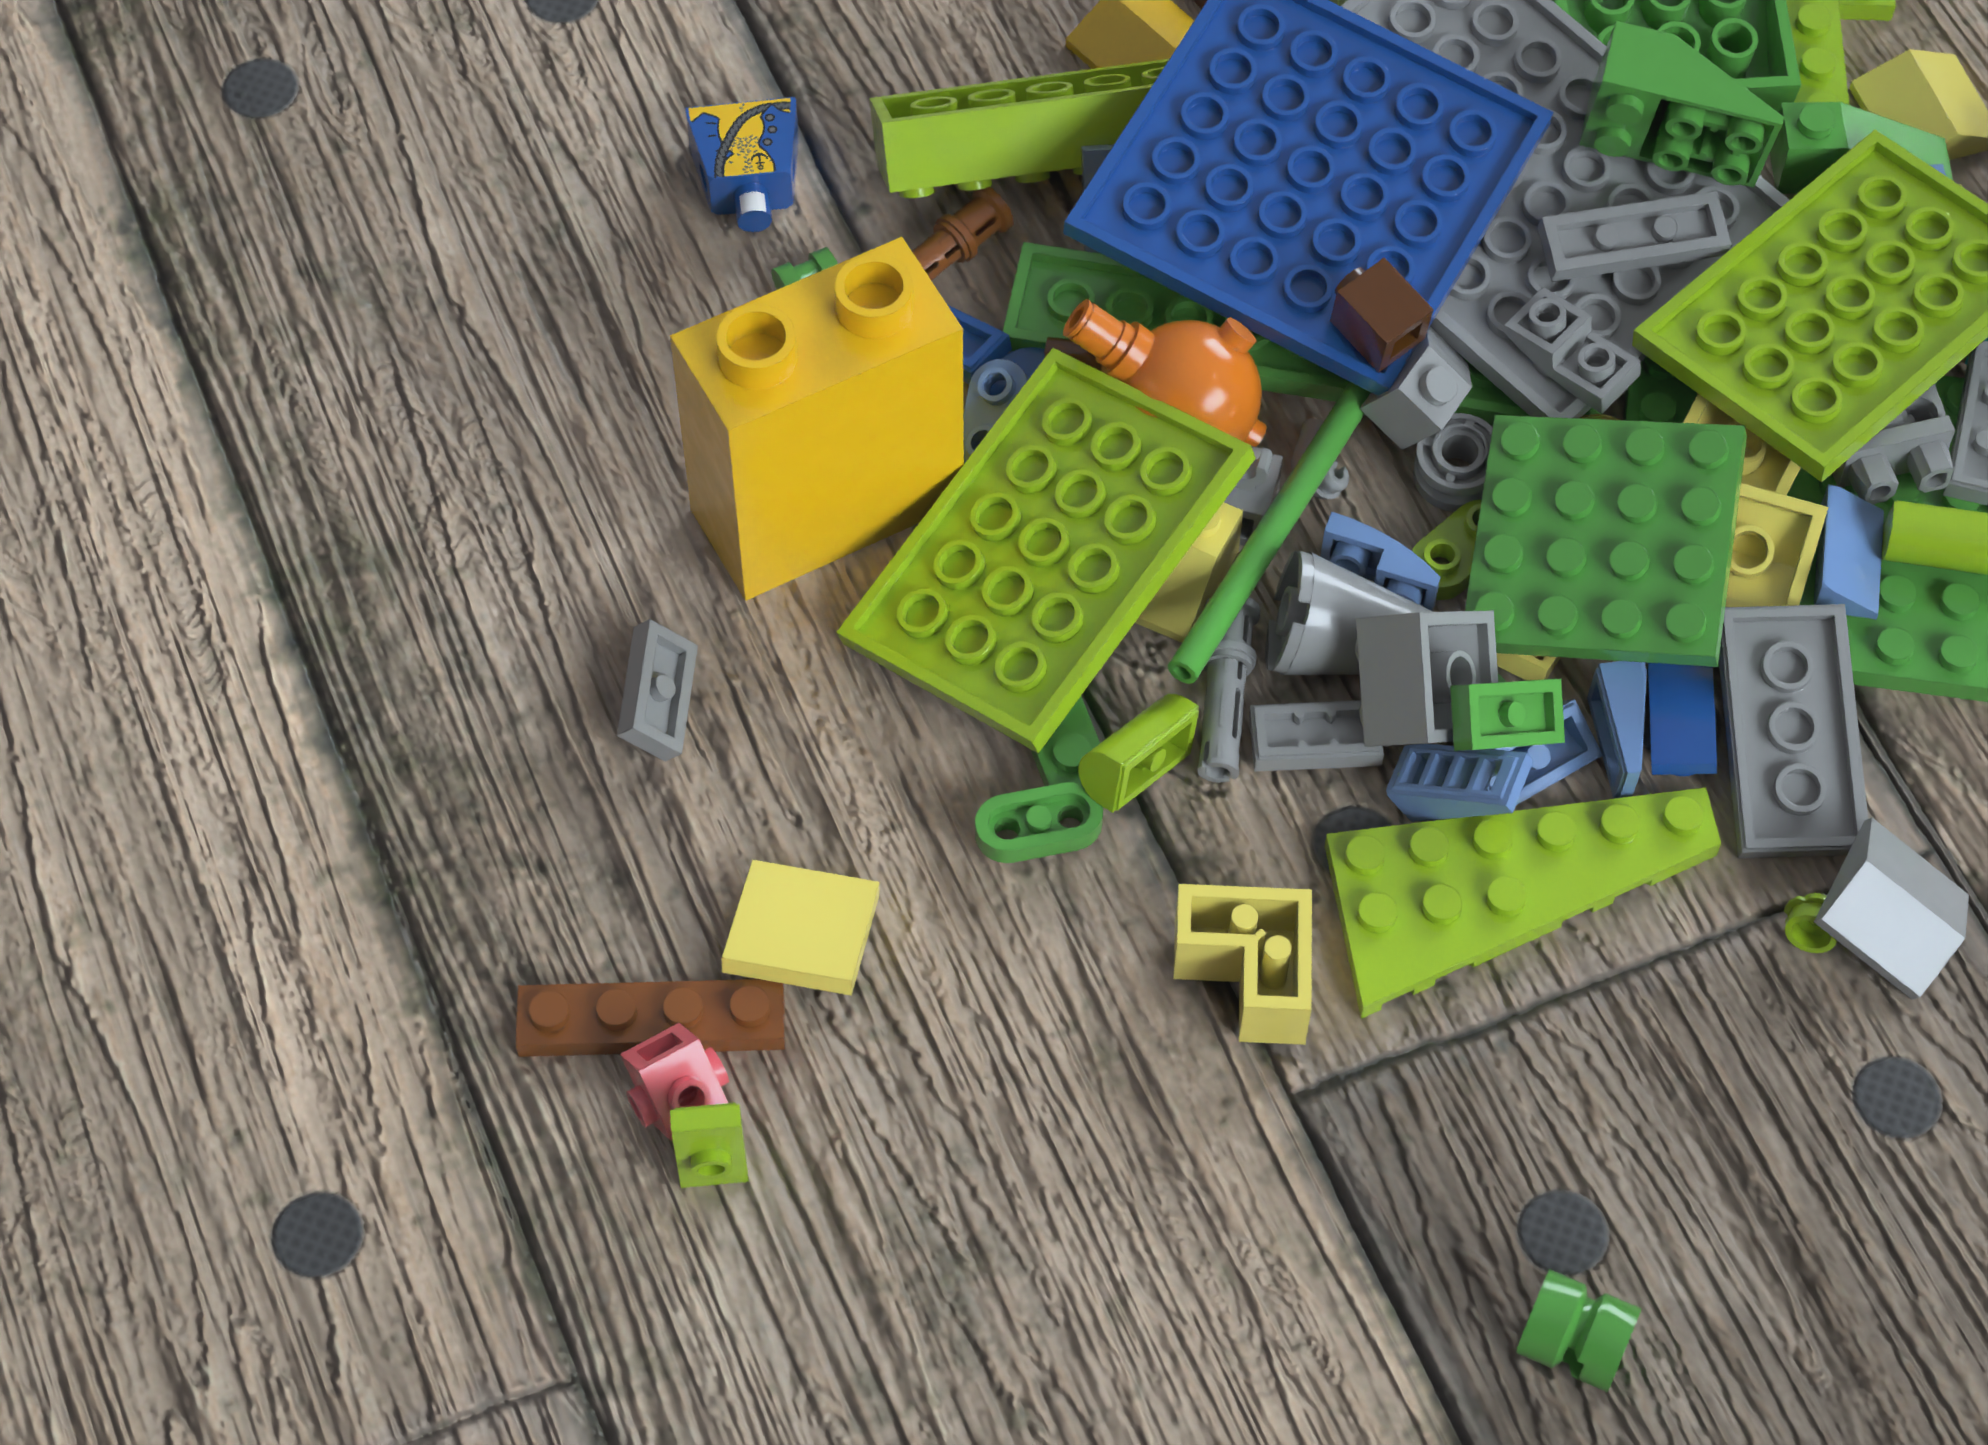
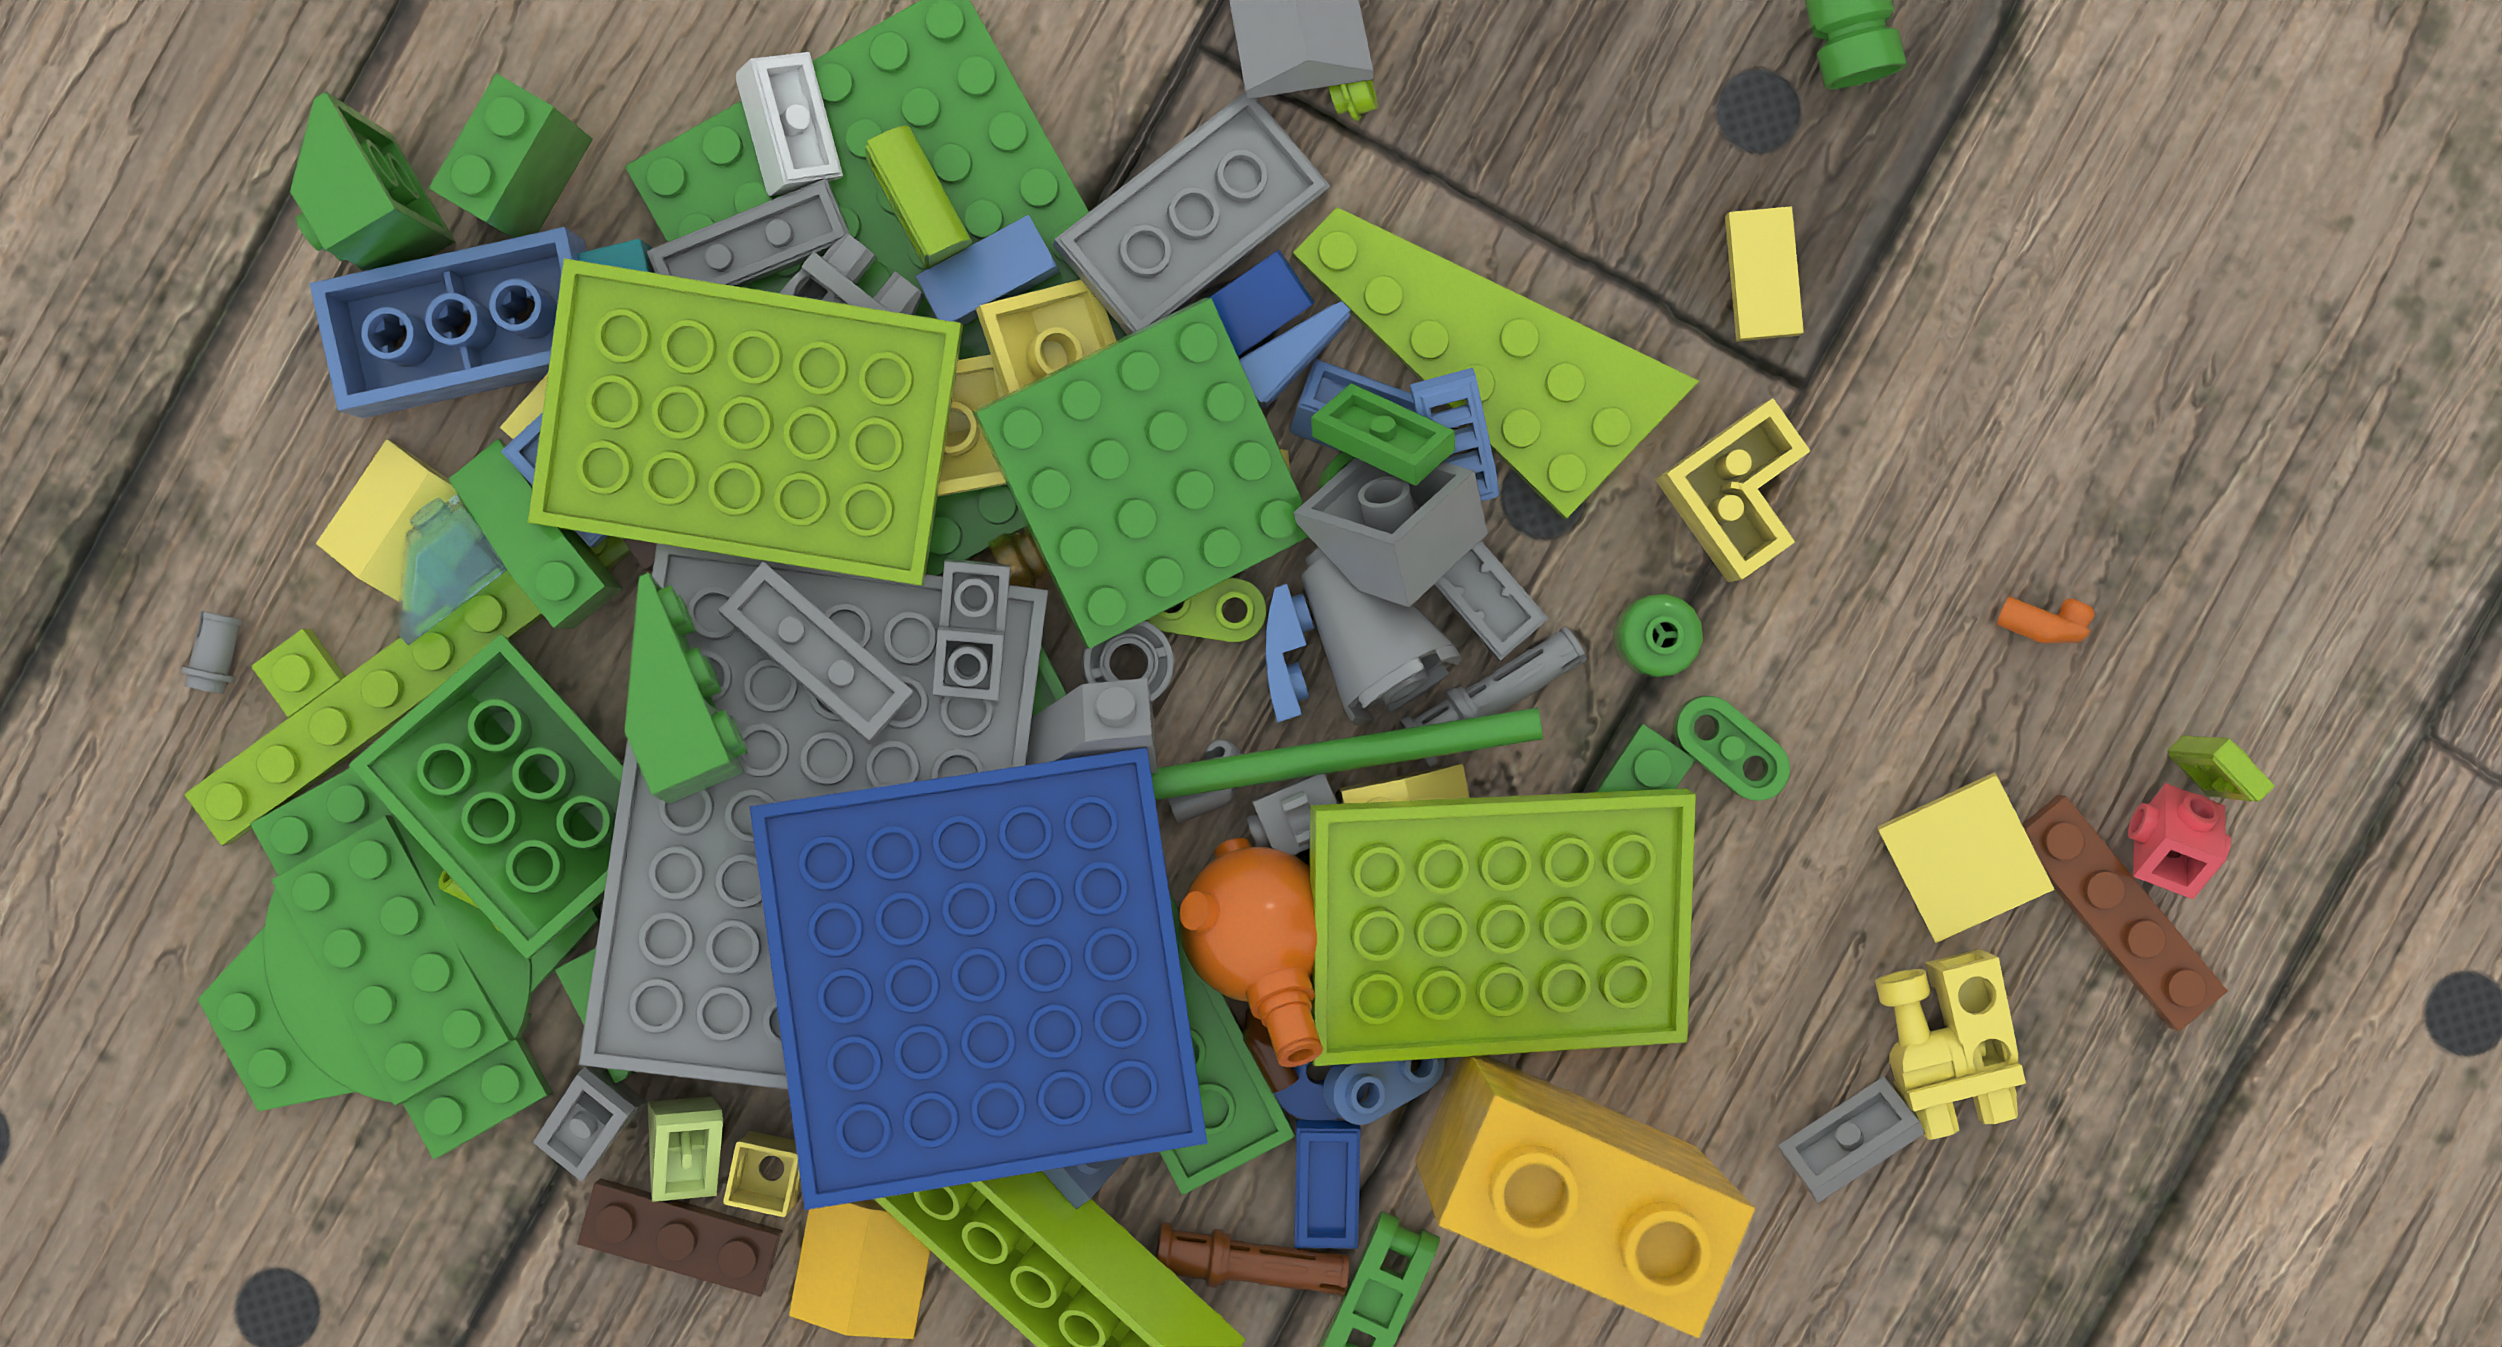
camera: 130 degrees left, 30 degrees up
(649, 817) = (1966, 1058): none -> light yellow hips
(932, 1125) = (2045, 627): none -> orange arm
(1139, 752) = (1617, 713): lime brick -> none
(1177, 822) = (1635, 635): none -> bright green head
(1380, 313) = (1099, 799): reddish brown brick -> none
(1415, 1127) = (1764, 273): none -> light yellow tile
(1881, 84) = (442, 565): none -> clear light blue slope

